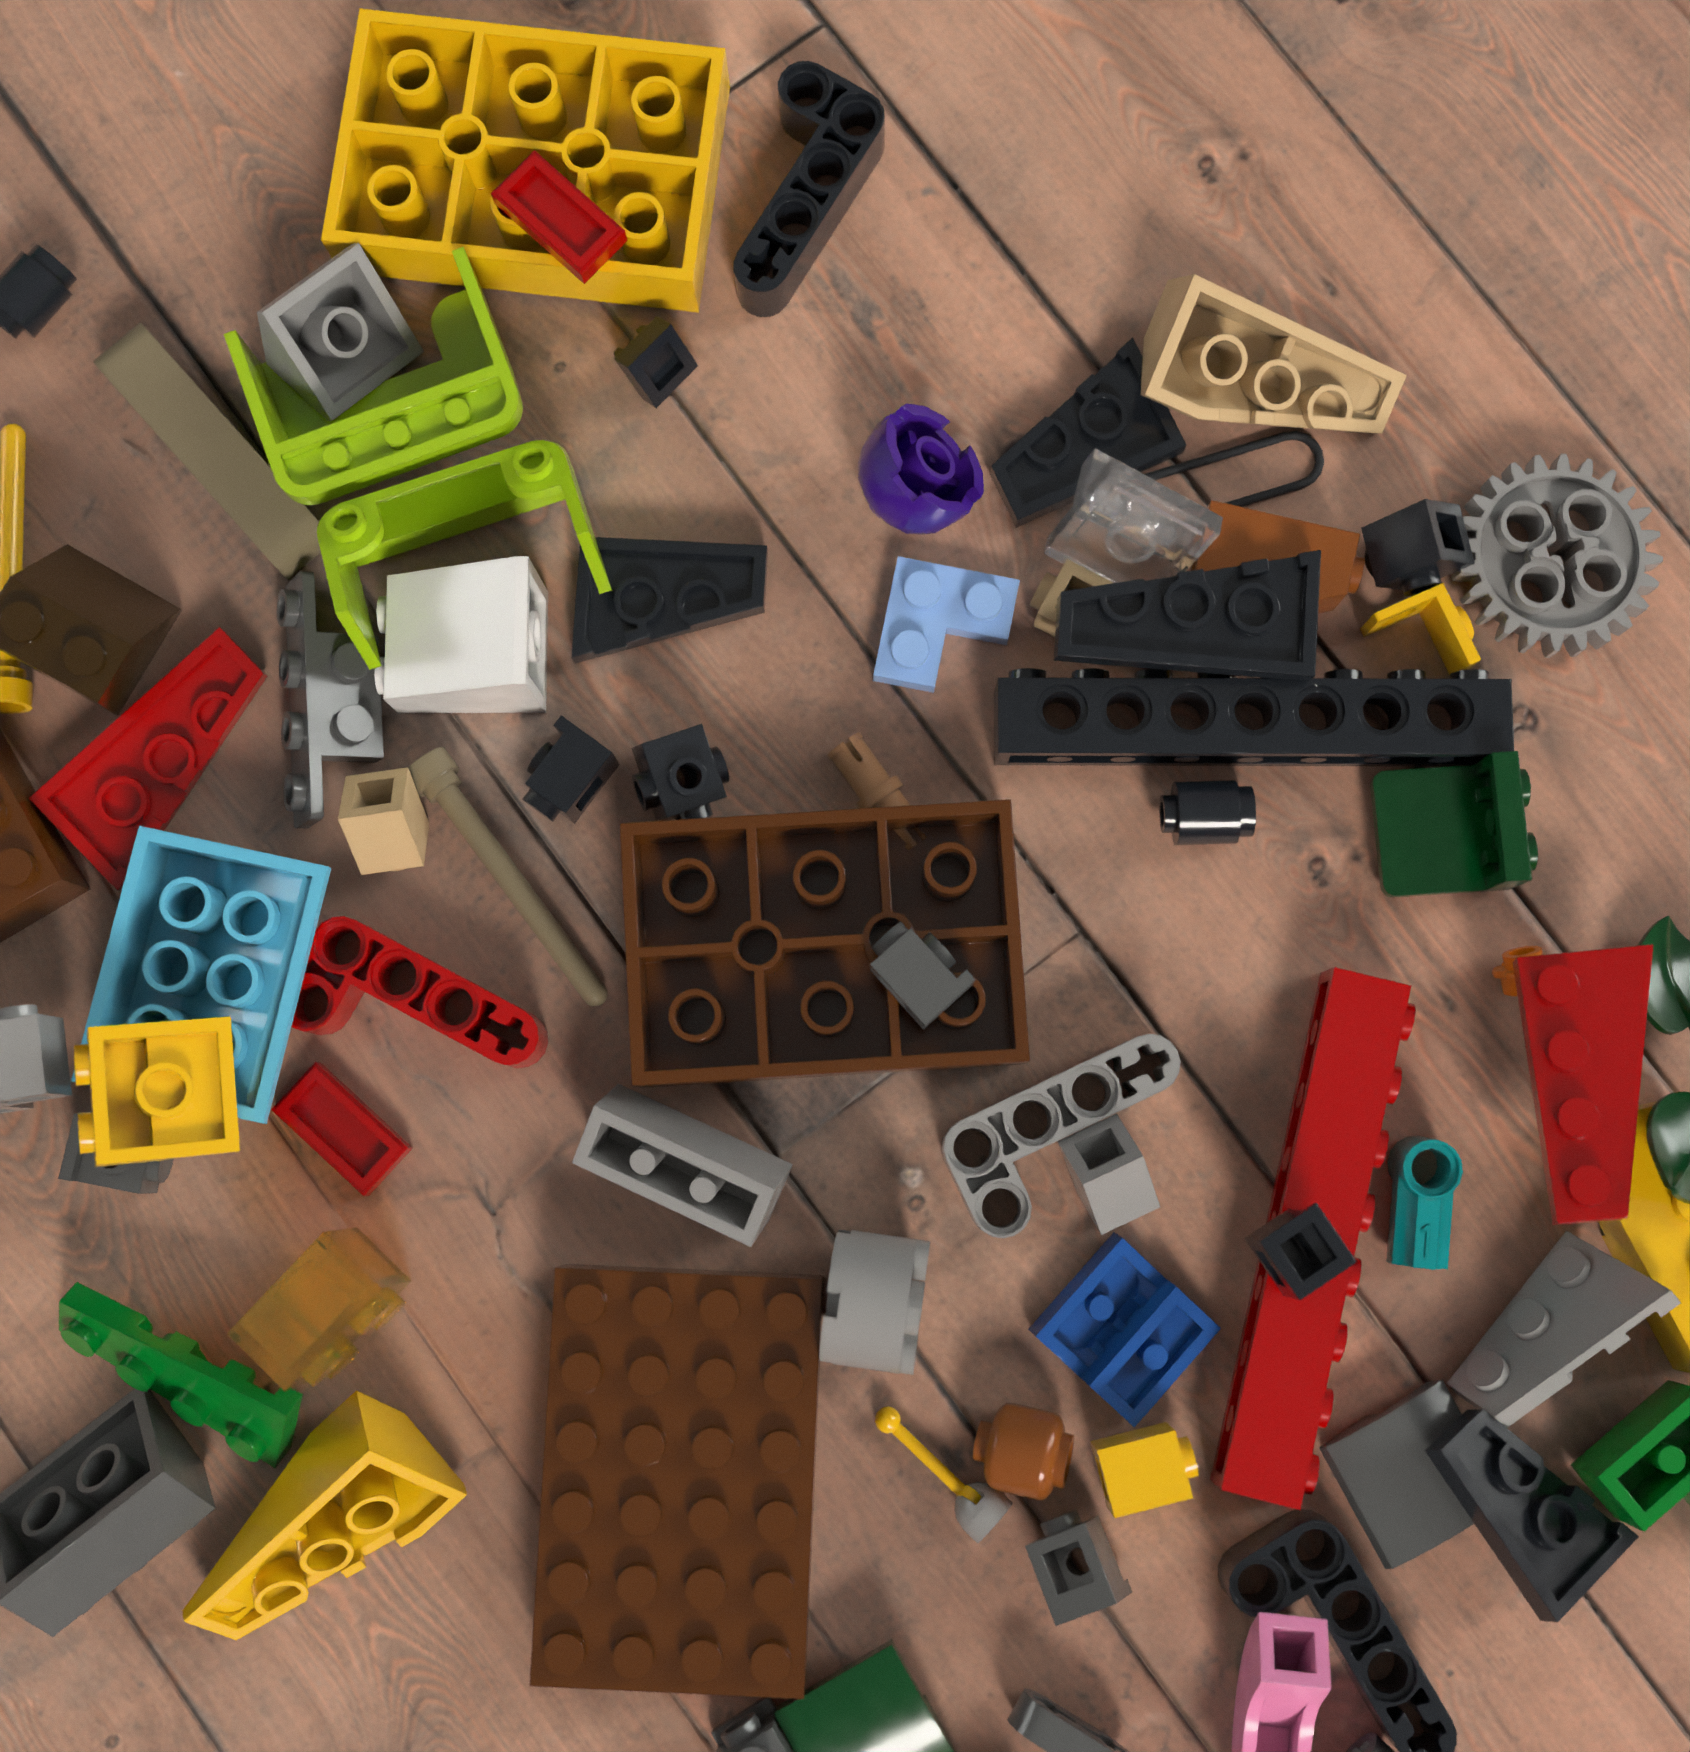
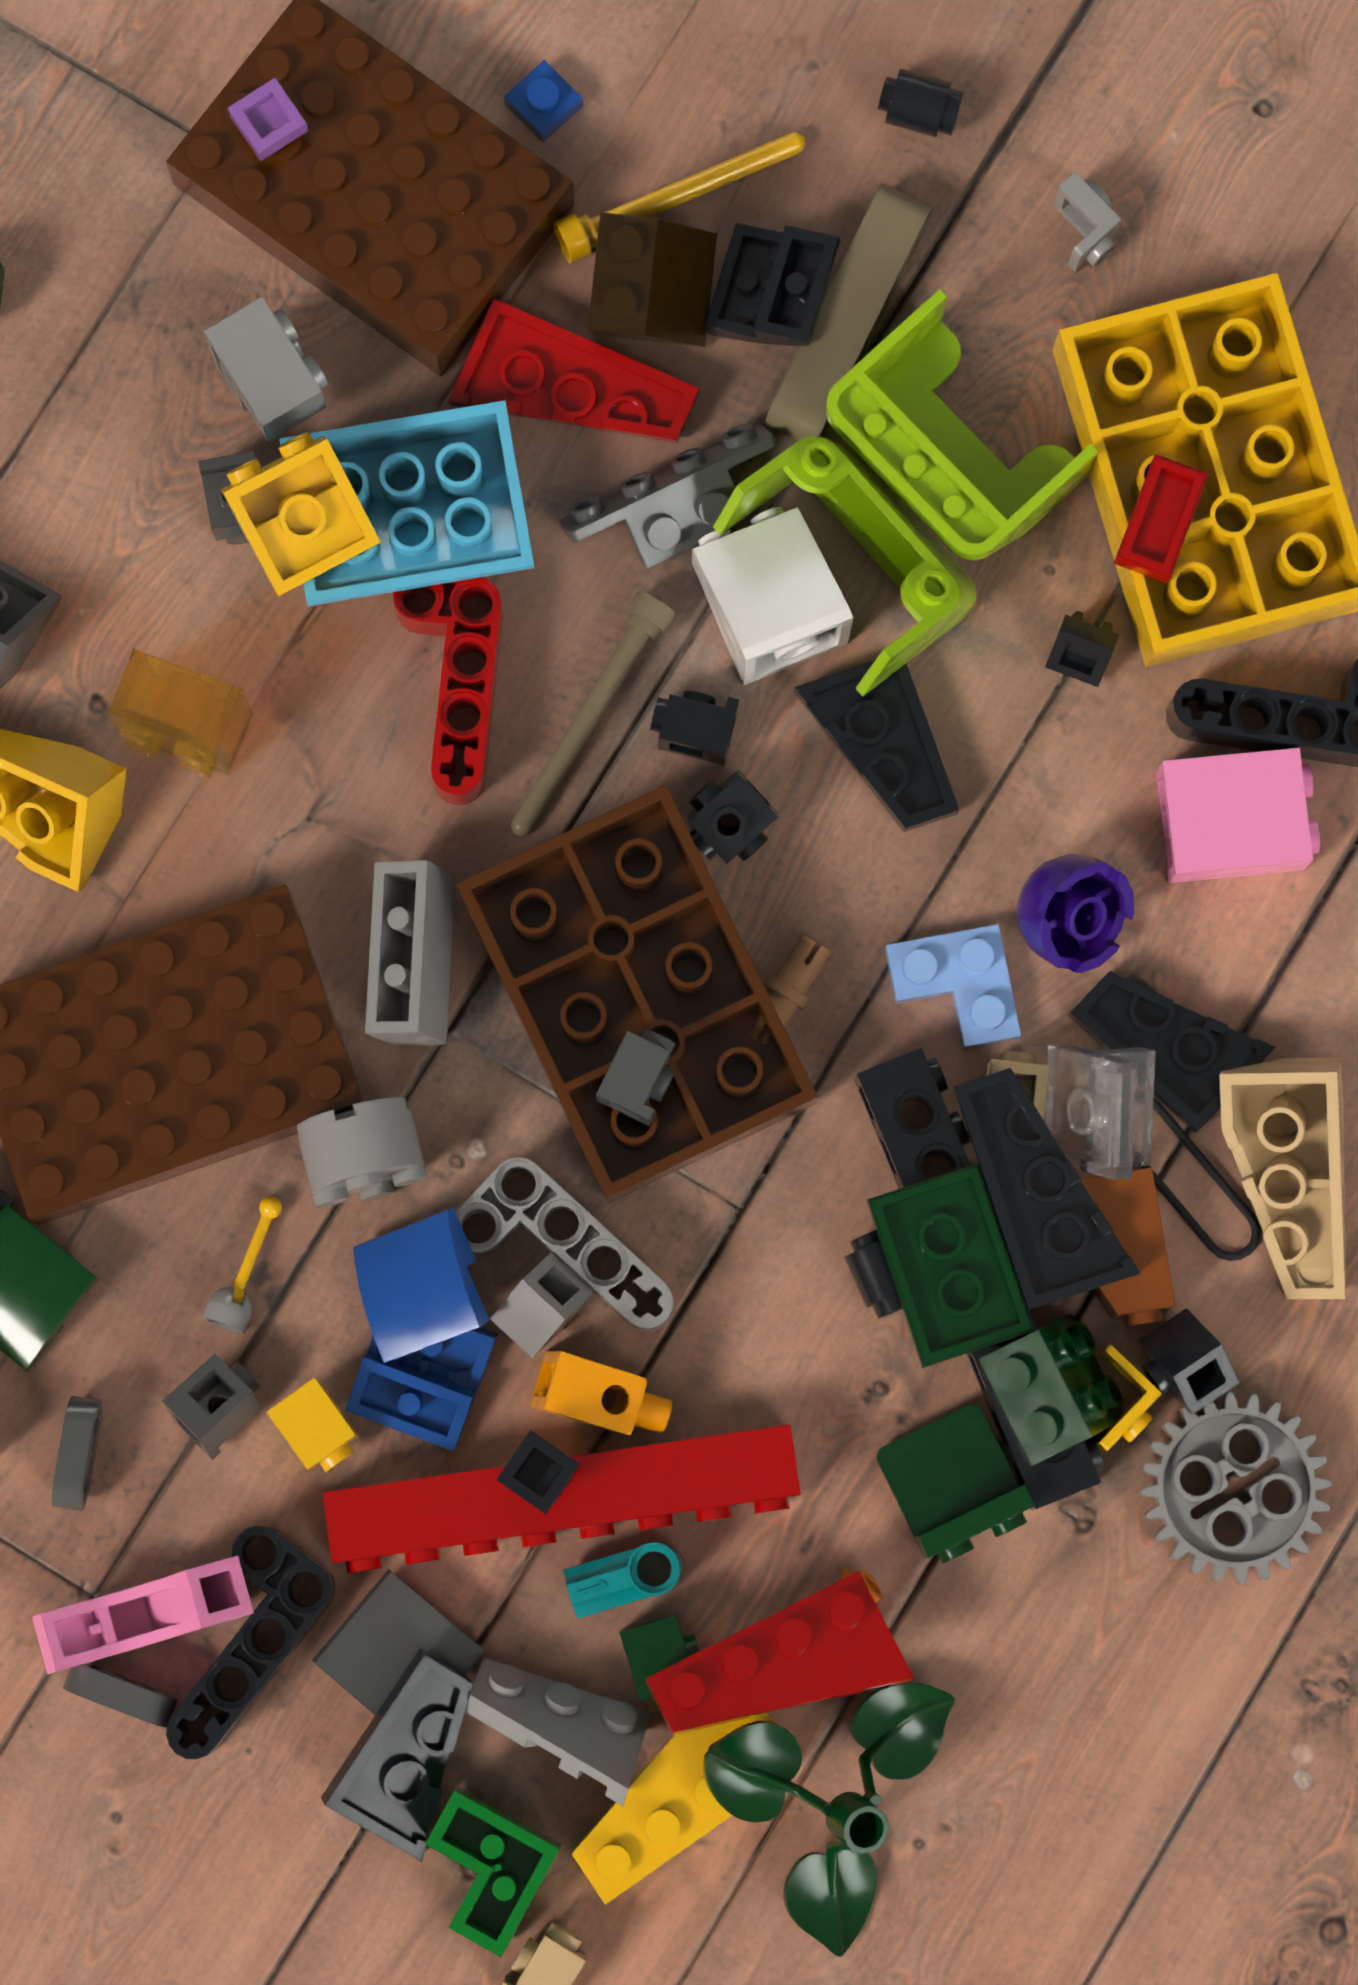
camera: 60 degrees right, 0 degrees up
(147, 511) = (772, 285): none -> black slope
(173, 1366) = (77, 665): green wing -> none
(220, 177) = (1090, 213): none -> light grey bracket
(336, 334) = (988, 377): light grey slope -> none
(342, 1129) = (328, 667): red tile -> none
(384, 821) = (592, 593): tan brick -> none
(884, 282) = (1236, 815): none -> bright pink brick
(1024, 1451) = (290, 1325): dark orange head -> none
(1039, 1296) = (418, 1285): none -> blue slope
(1225, 1157) = (575, 1388): none -> light orange torso
(1236, 738) = (950, 1265): none -> dark green tile
(1402, 688) = (1053, 1388): none -> dark green bracket
(1511, 1198) = (654, 1648): none -> dark green brick

